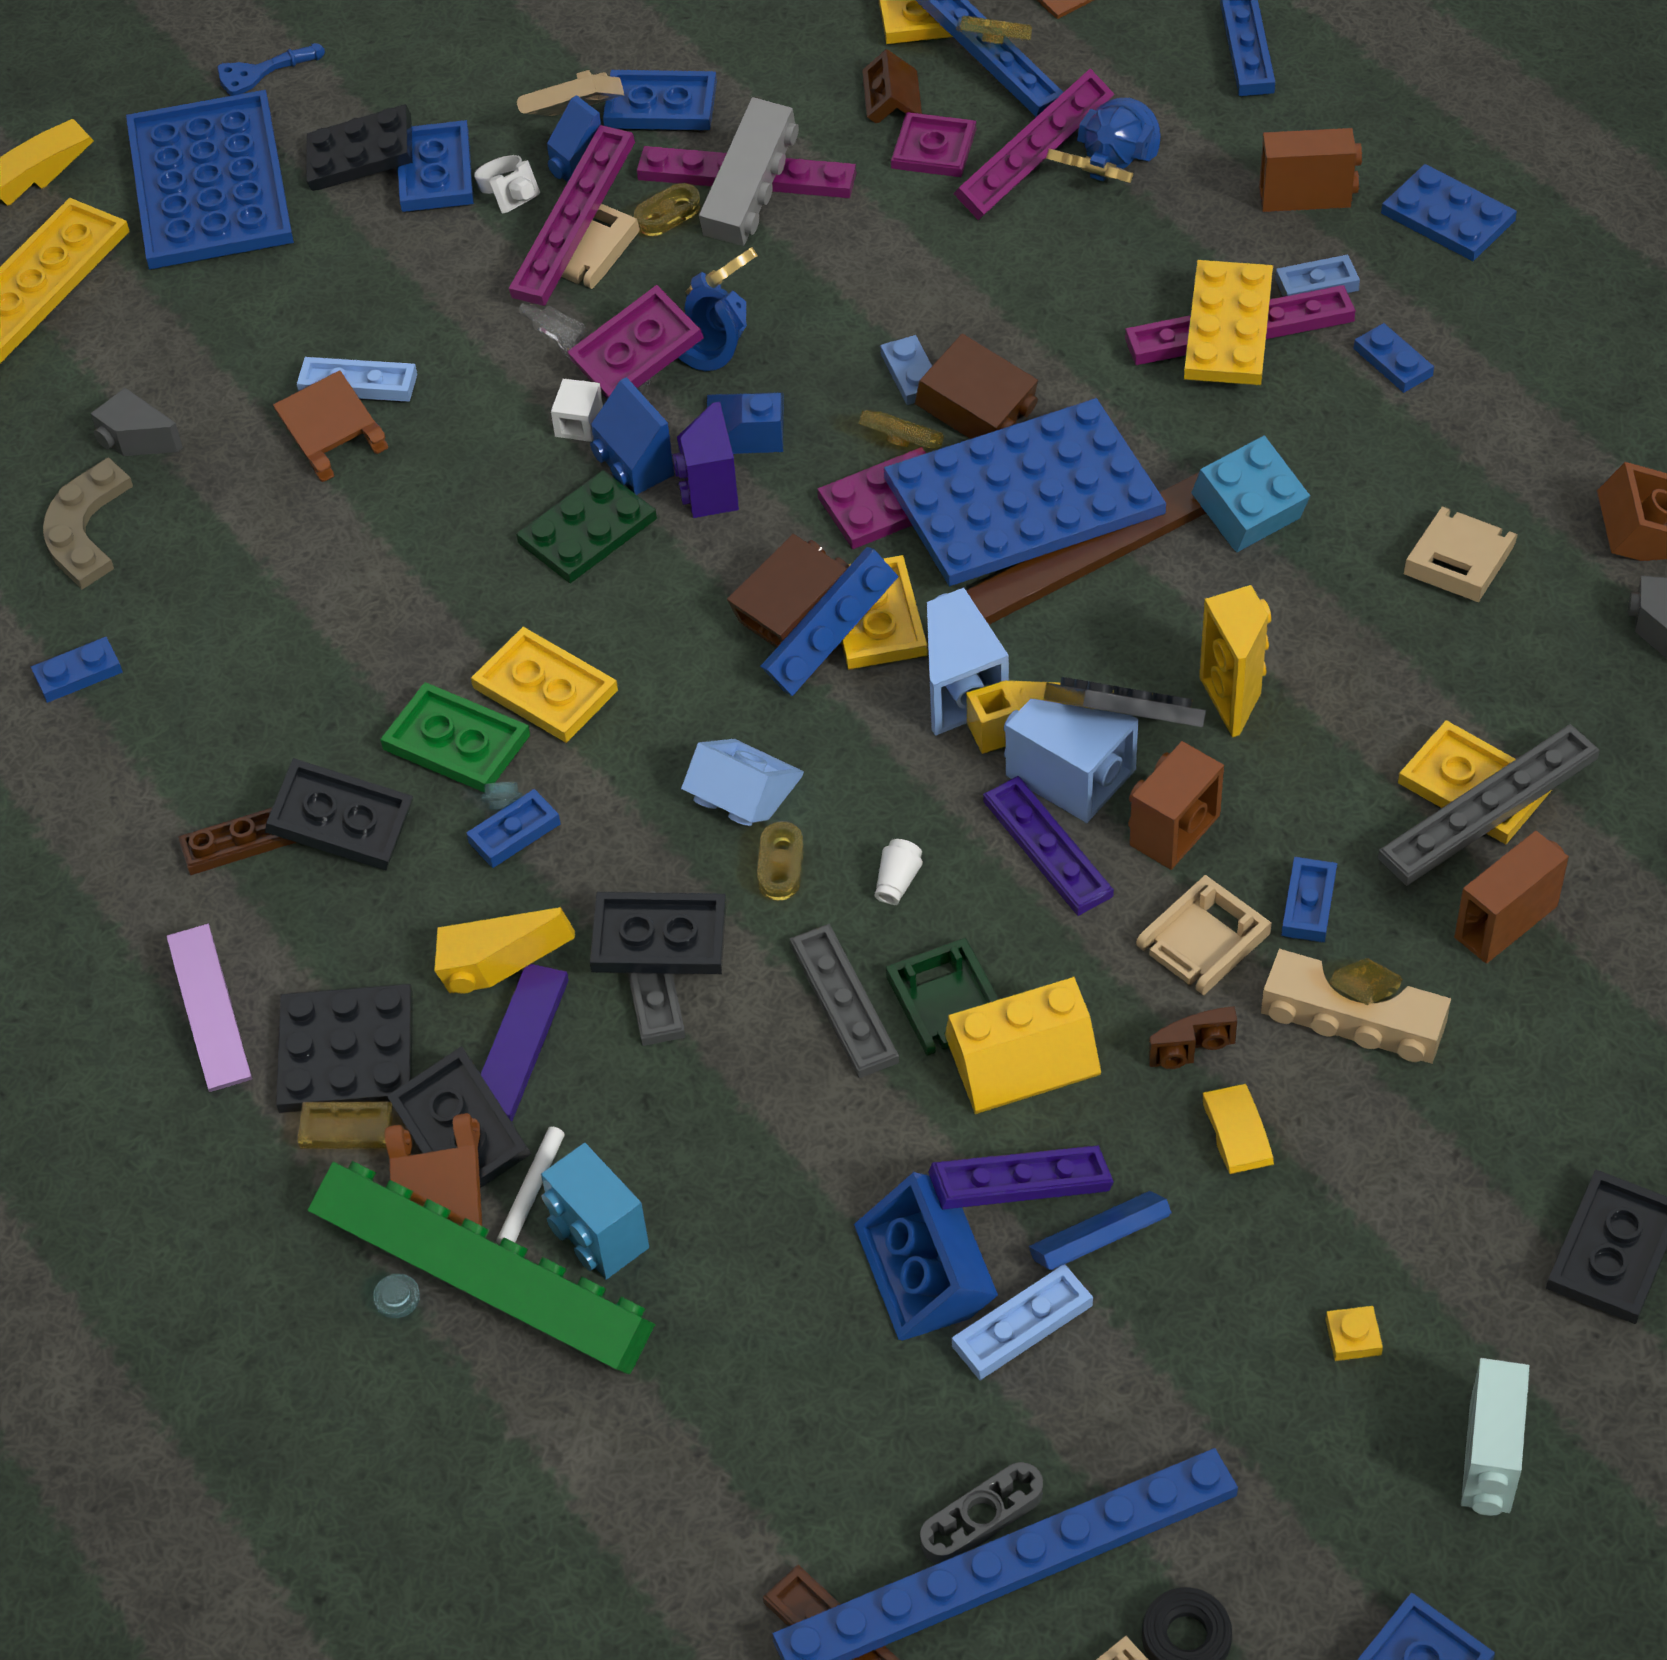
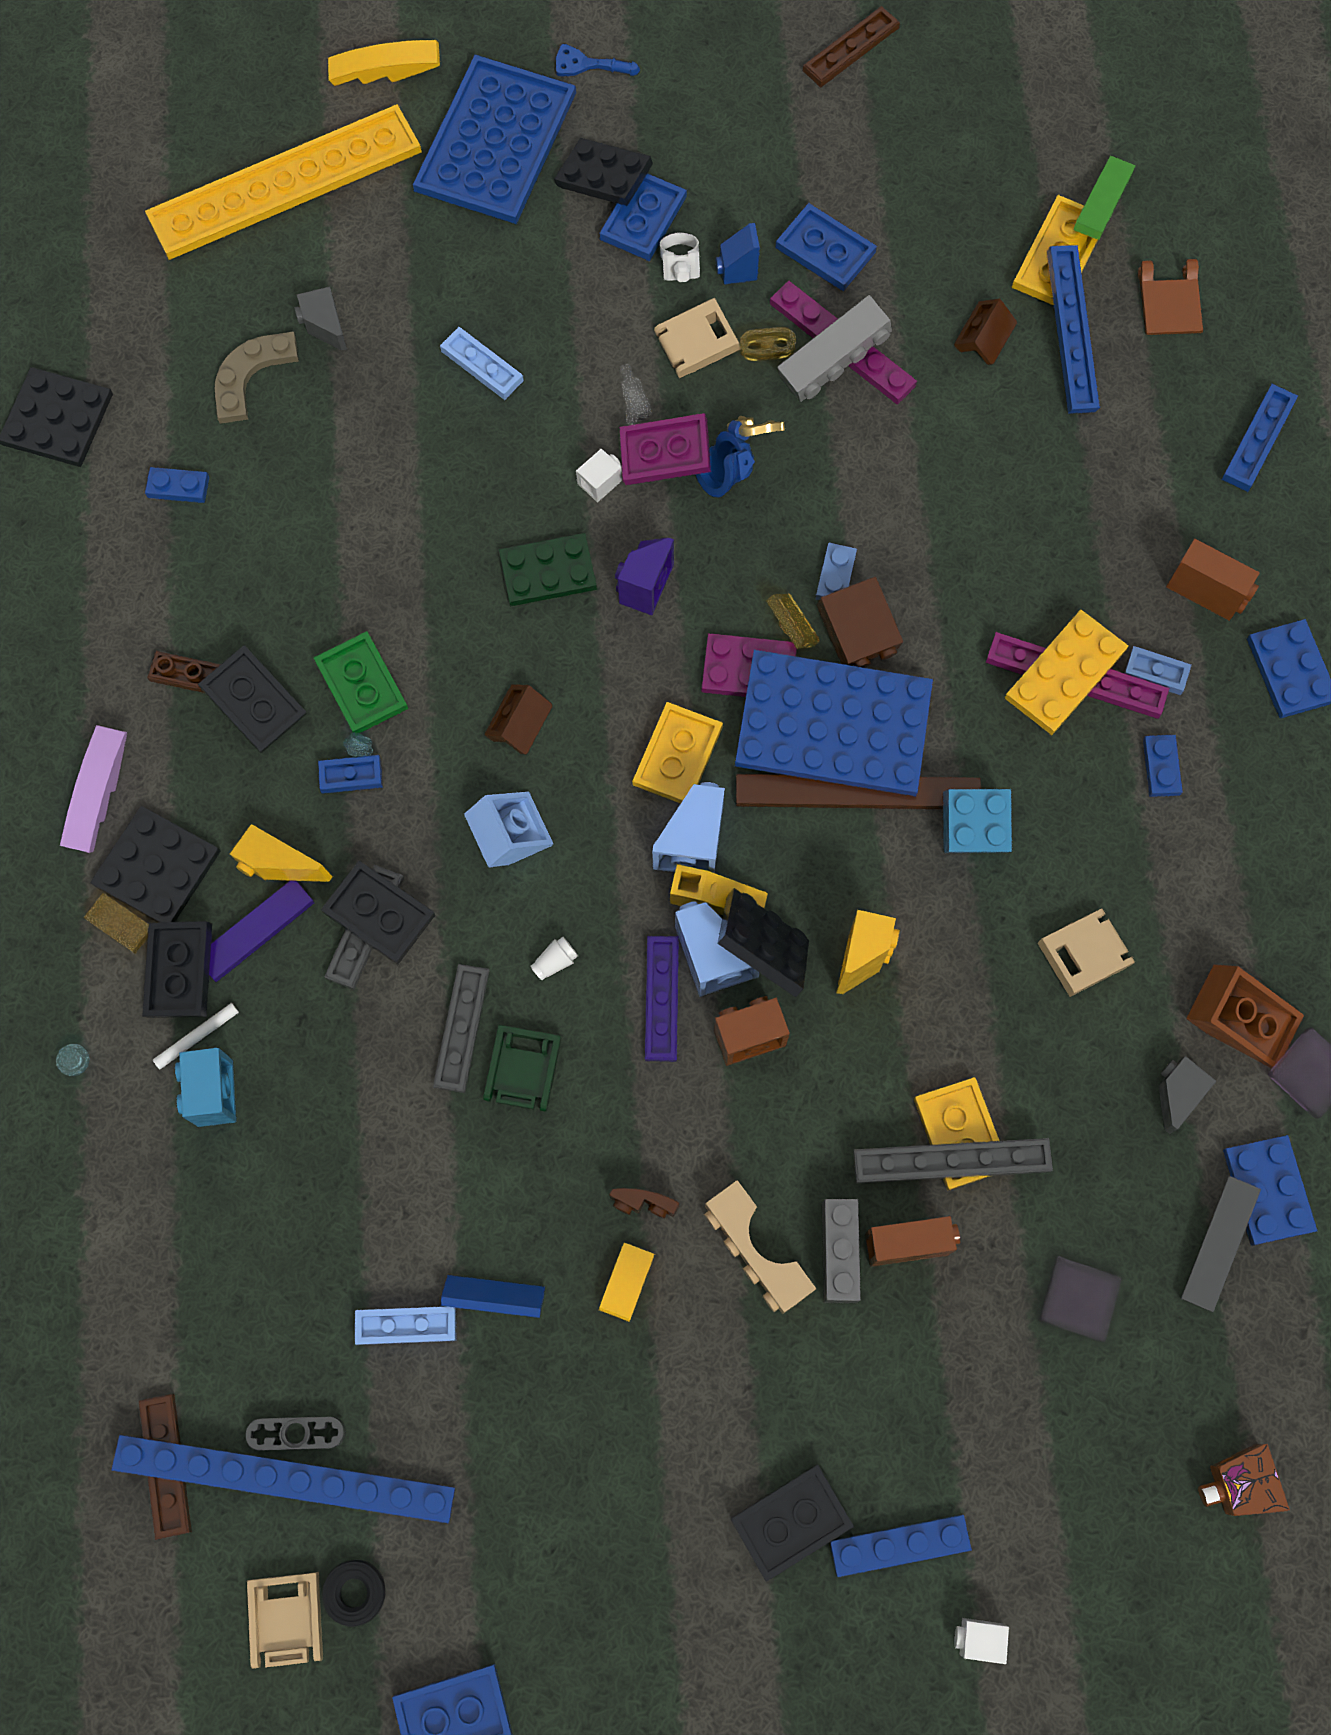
camera: 30 degrees right, 20 degrees up
(327, 417) = (440, 384): dark orange flag -> none
(443, 1175) = (136, 1004): dark orange flag -> none
(482, 1267) = (125, 1078): green brick -> none
(544, 684) = (439, 677): yellow plate -> none
(554, 99) = (761, 215): tan container -> none
(571, 215) = (696, 315): magenta plate -> none
(632, 439) = (611, 525): blue slope -> none
(666, 672) = (519, 718): none -> reddish brown panel
(752, 420) = (703, 548): blue slope -> none
(780, 863) = (488, 903): clear yellow plate -> none
(785, 588) = (630, 712): reddish brown brick -> none
(829, 621) = (635, 749): blue plate -> none
(924, 1259) = (380, 1244): blue slope -> none
(933, 144) = (983, 394): magenta tile -> none
(994, 30) = (1080, 330): clear yellow plate -> none
(1020, 1177) = (468, 1231): dark purple tile -> none
(1023, 1045) = (536, 1140): yellow slope -> none
(1031, 144) = (1048, 437): magenta plate -> none
(1114, 138) = (1106, 465): blue helmet -> none
(1197, 943) = (703, 1131): tan container -> none
(1309, 899) = (790, 1149): blue plate -> none
(1354, 1333) = (593, 1467): yellow plate -> none
(1366, 981) = (775, 1237): clear yellow plate -> none
(1445, 956) = (841, 1251): none -> flat silver brick
(1495, 1436) = (610, 1608): light aqua brick -> none

